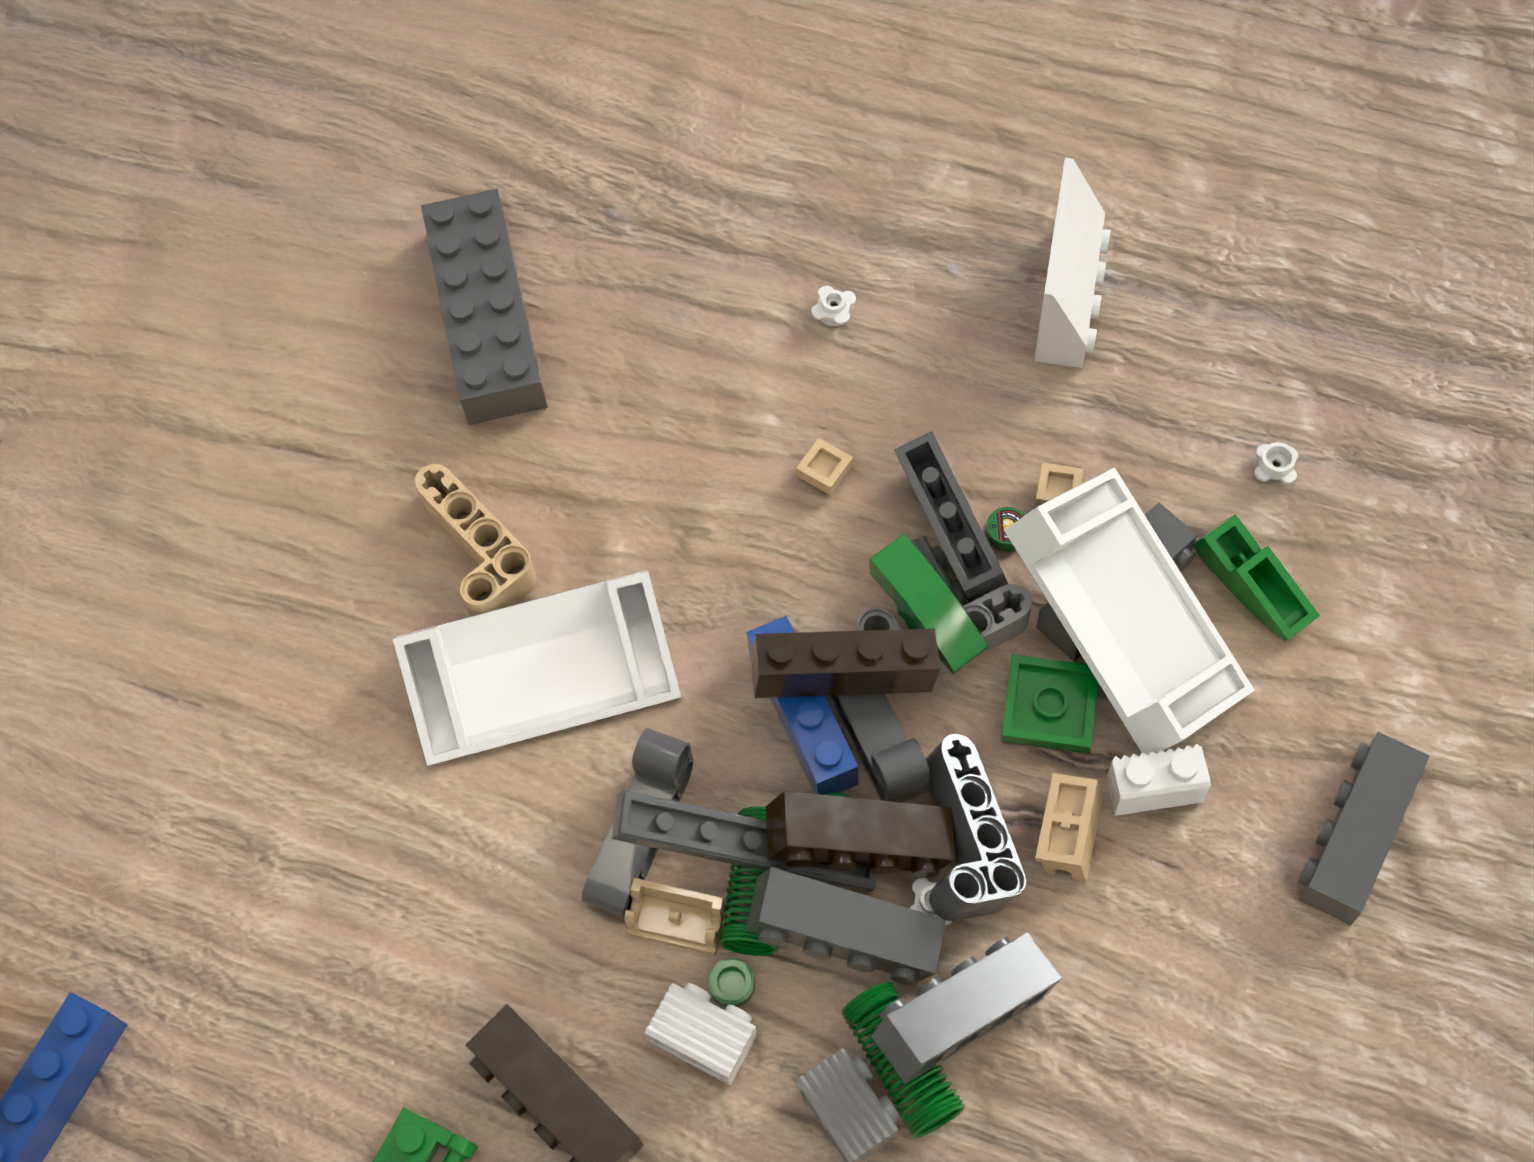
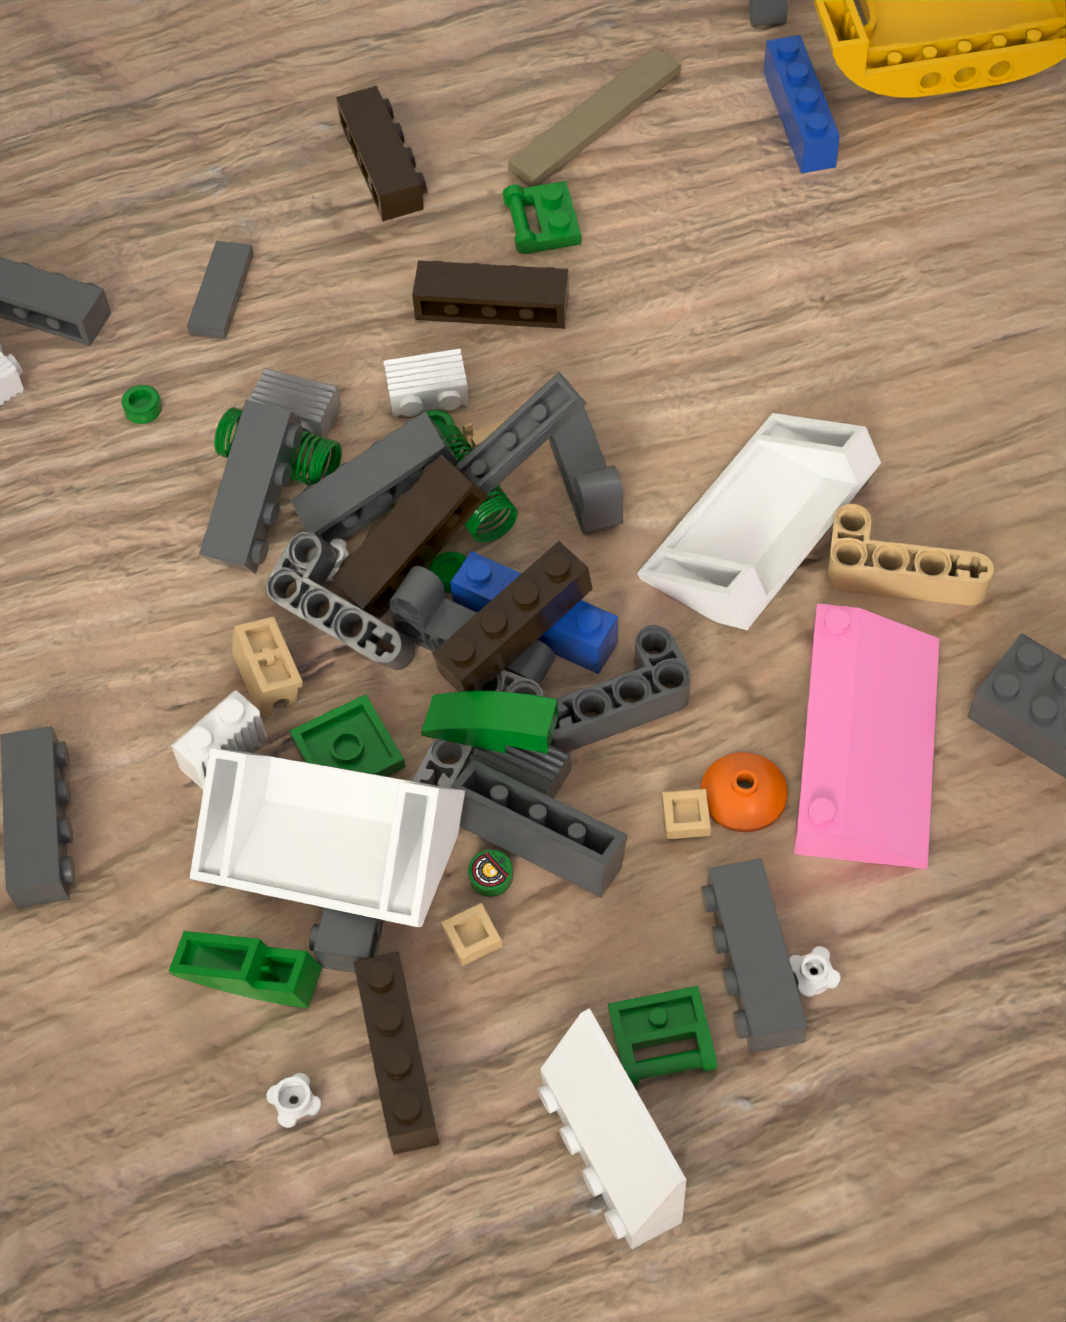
camera: 140 degrees right, 5 degrees down
(637, 430) = (868, 740): none -> bright pink slope
(761, 479) = (745, 808): none -> orange dish
(800, 594) = (609, 696): none -> dark grey beam
(865, 337) = (755, 956): none -> dark grey brick
(971, 342) = (659, 1021): none -> green plate
(1180, 432) = (396, 1053): none -> dark brown brick

